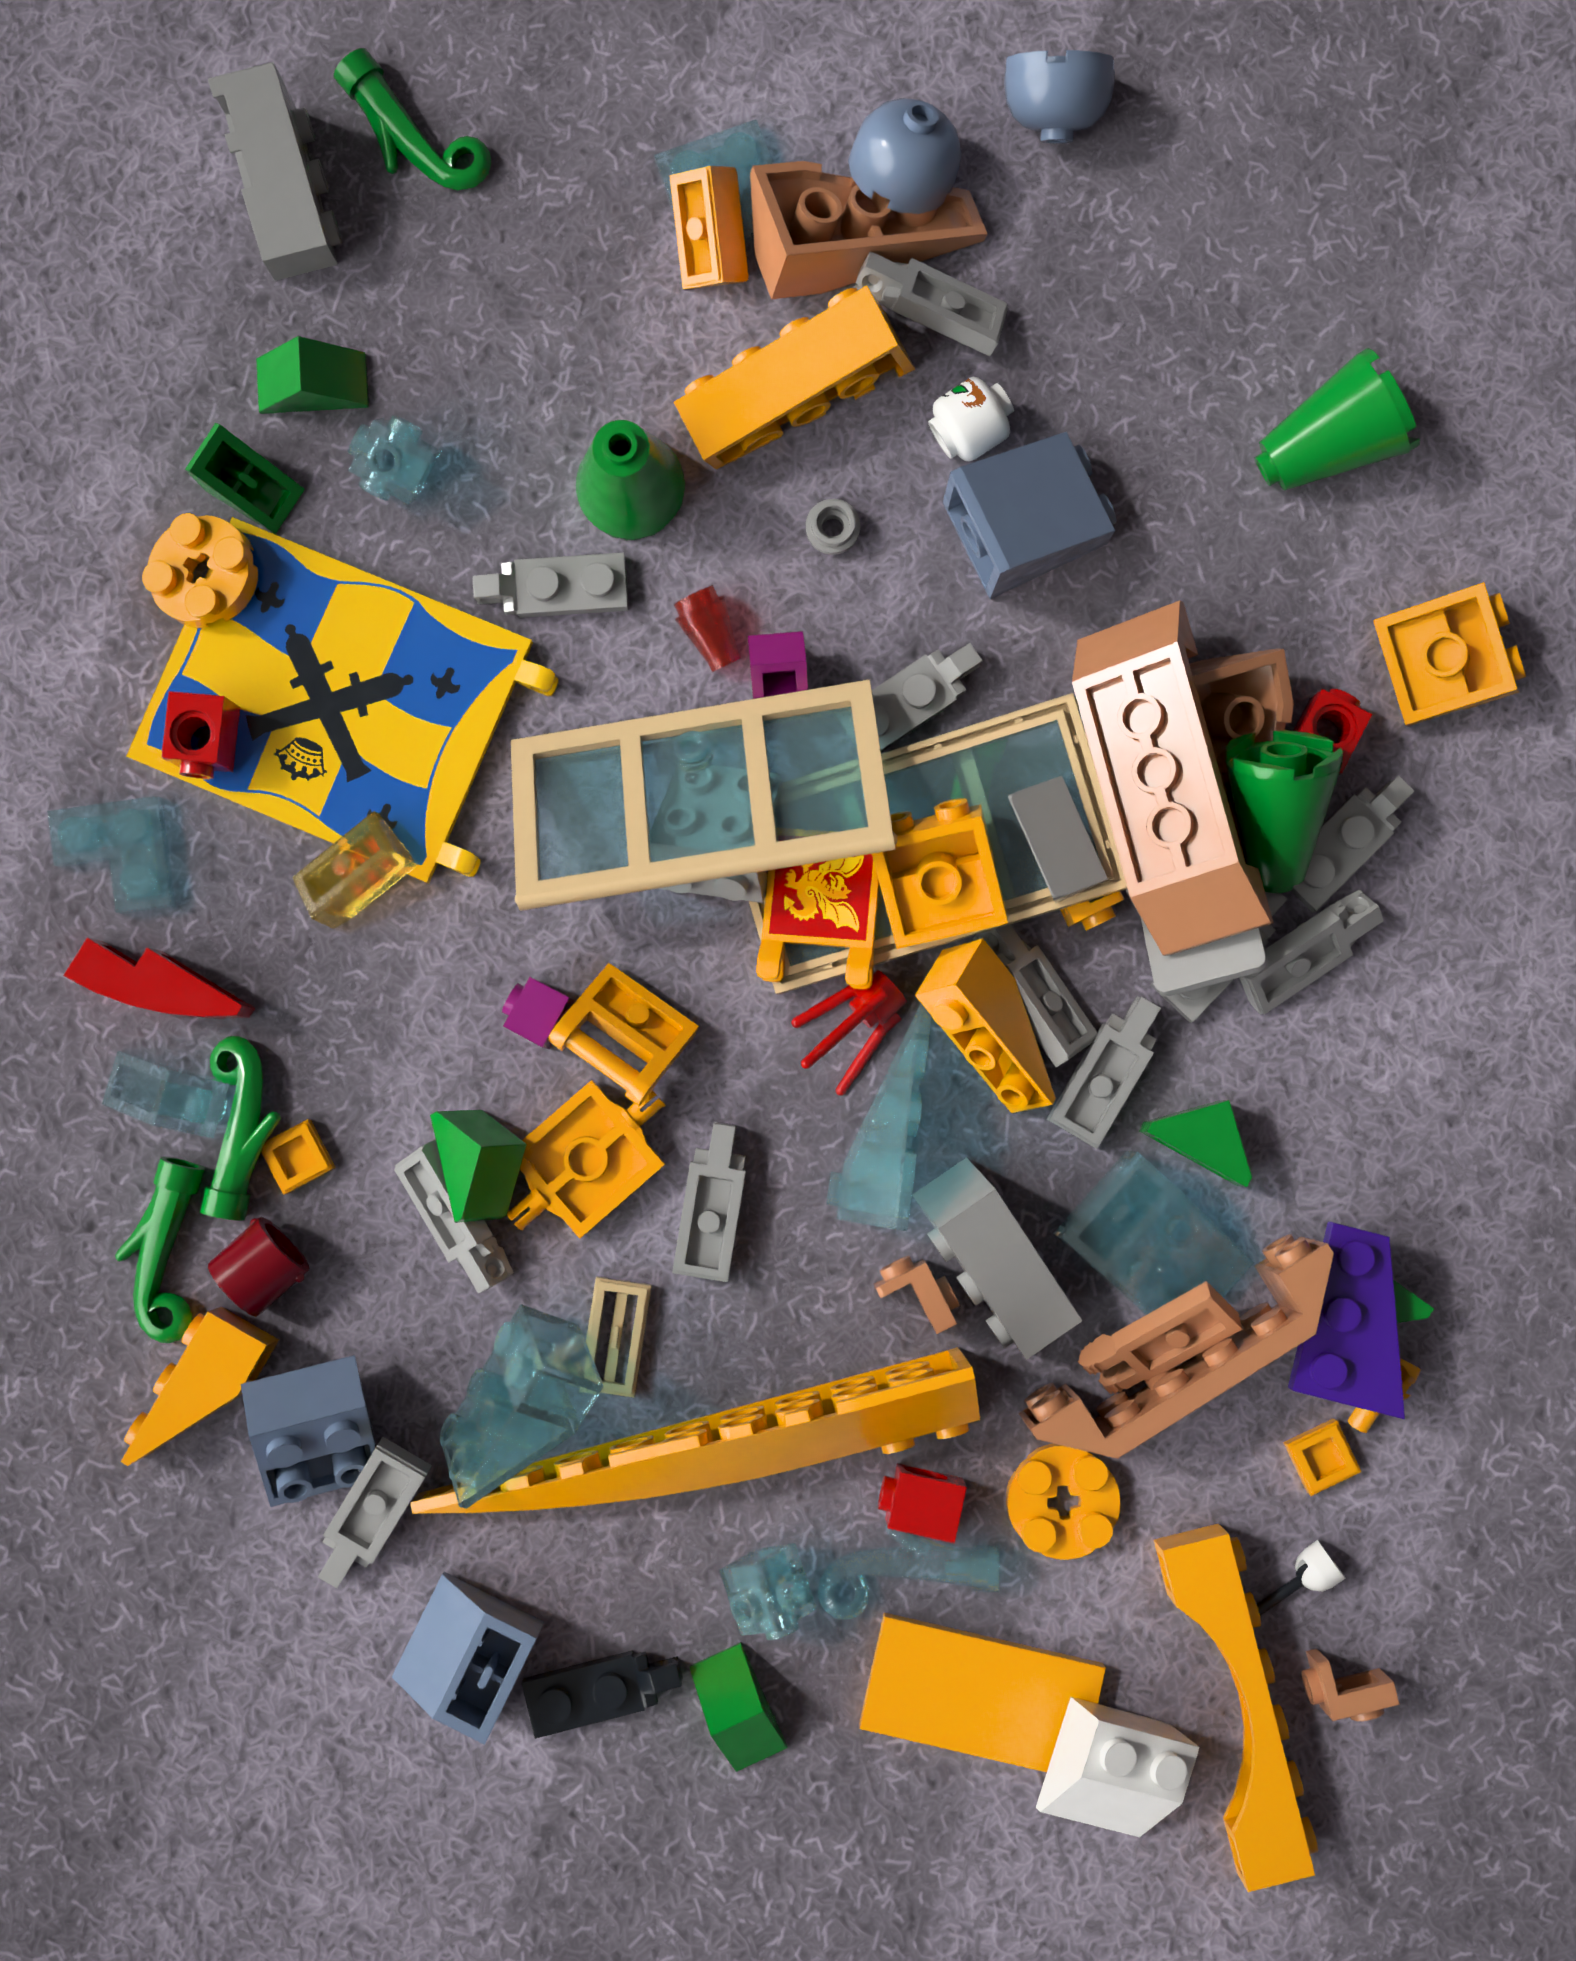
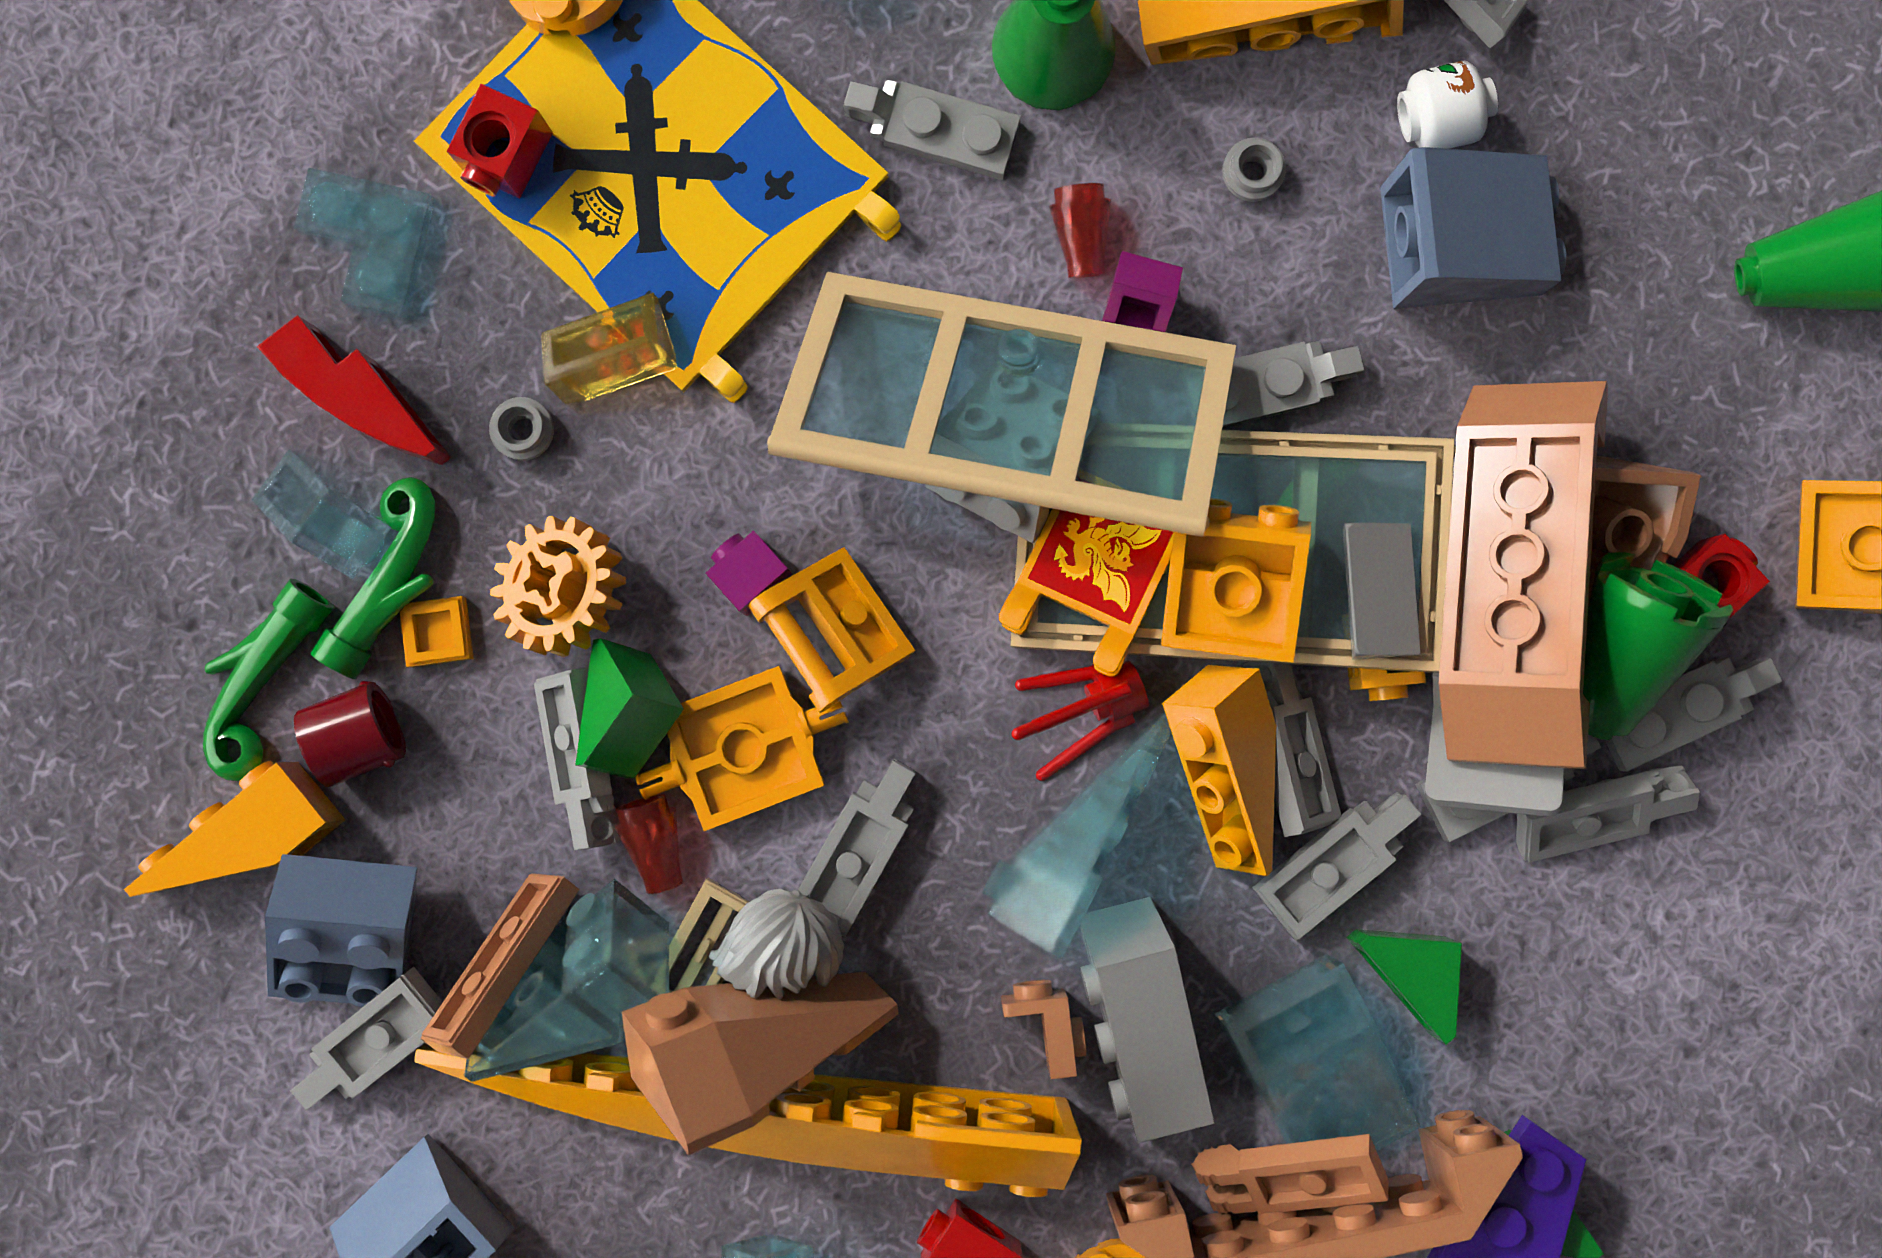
camera: 20 degrees right, 0 degrees up
(289, 956) = (507, 415): none -> light grey plate
(385, 1082) = (558, 586): none -> light orange gear
(452, 1407) = (499, 965): none -> nougat tile
(539, 1263) = (651, 840): none -> clear red cone
(662, 1407) = (719, 1056): none -> nougat wedge
(675, 1304) = (780, 944): none -> light grey hair

